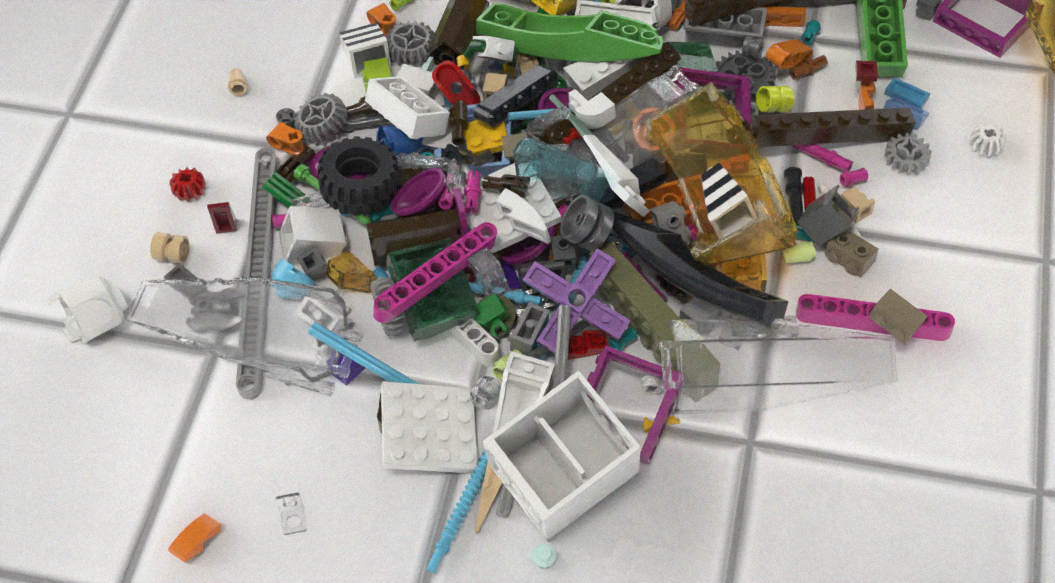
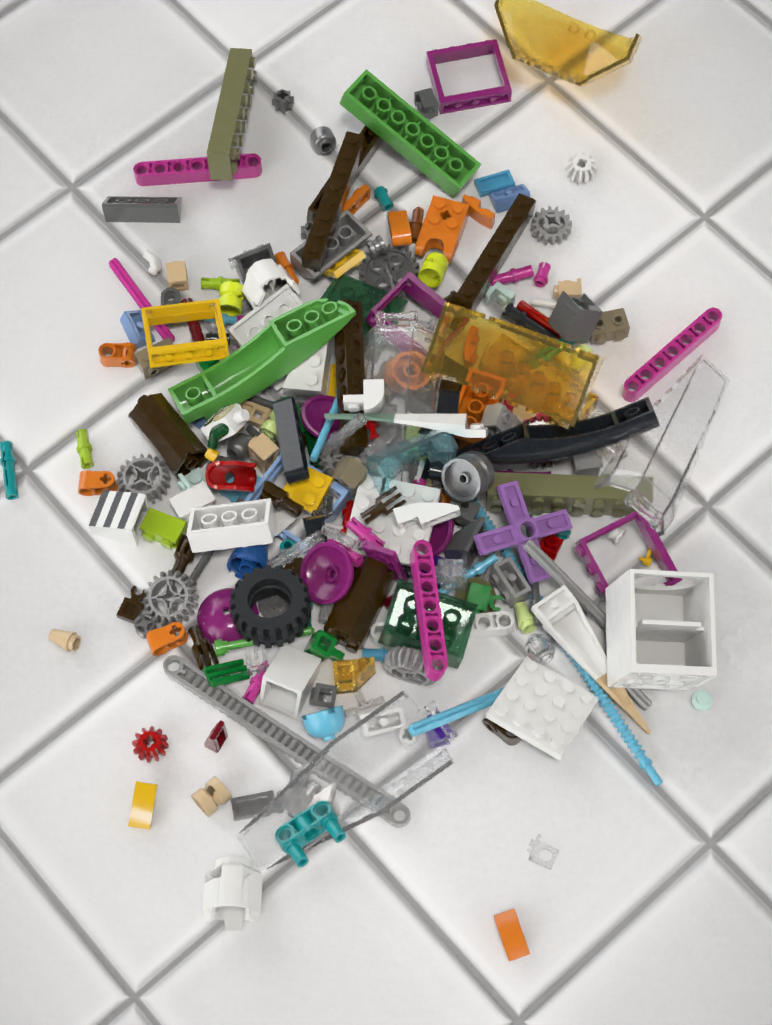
camera: 55 degrees left, 10 degrees up
(132, 209) = (142, 805): none -> yellow slope
(177, 317) = (307, 827): none -> teal piece
(295, 100) = (131, 607): none -> dark brown plate
(357, 238) = (323, 646): none -> green brick
(725, 202) = (524, 372): white slope -> none
(726, 41) = (349, 261): none -> yellow plate
(801, 156) = (501, 293): none -> light aqua bracket
(821, 83) = (442, 227): none -> orange brick
(866, 72) = (468, 193): dark red tile -> none
(897, 316) = (695, 340): dark tan brick -> none

